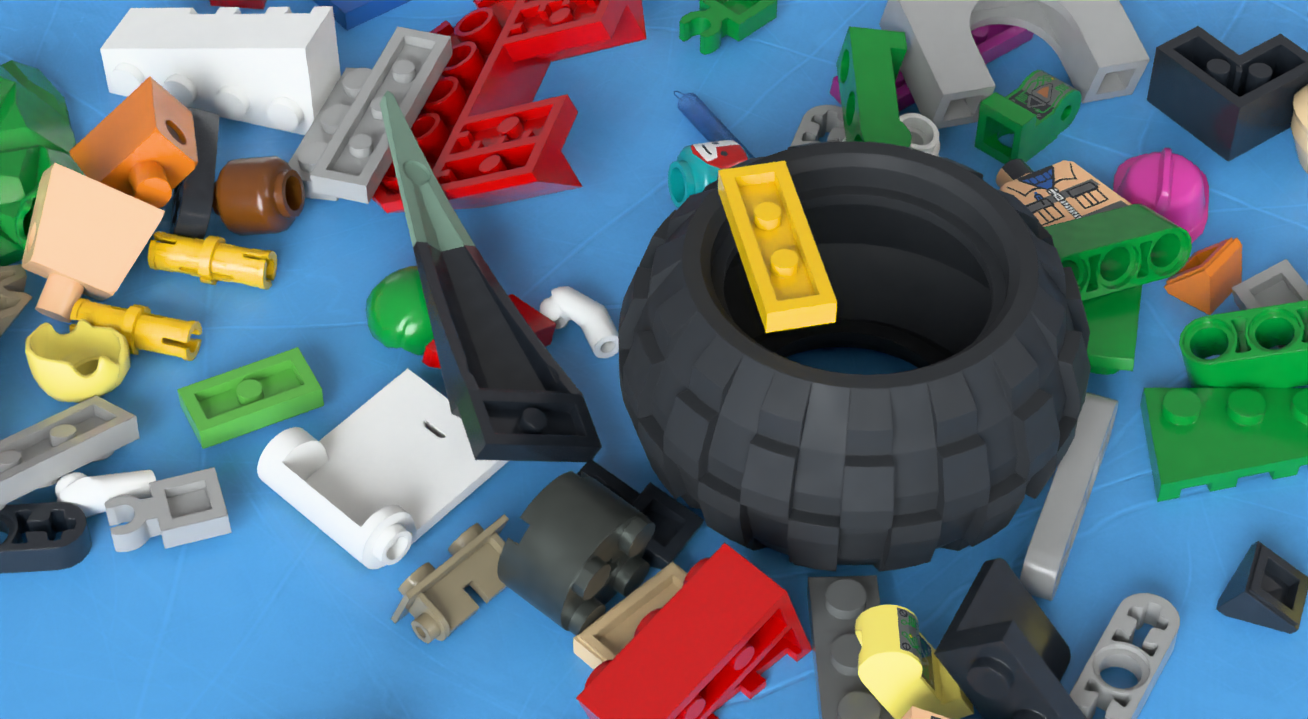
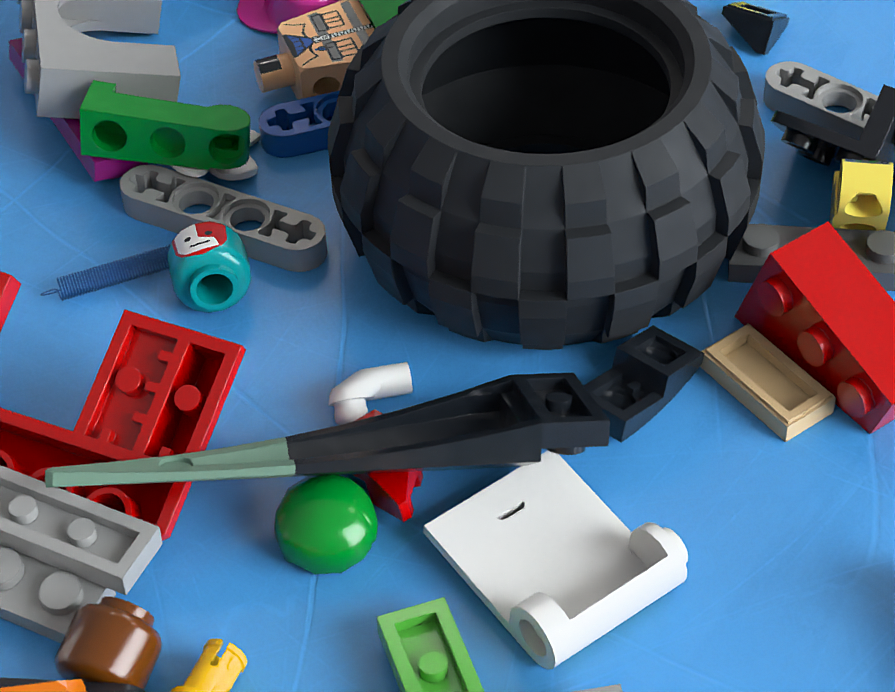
camera: 80 degrees left, 0 degrees up
(438, 595) = (709, 508): dark tan hinge -> none
(577, 551) = (717, 392): pearl dark grey brick -> none
(776, 247) = (545, 87): yellow plate -> none
(1032, 113) = (194, 57): green leg -> none

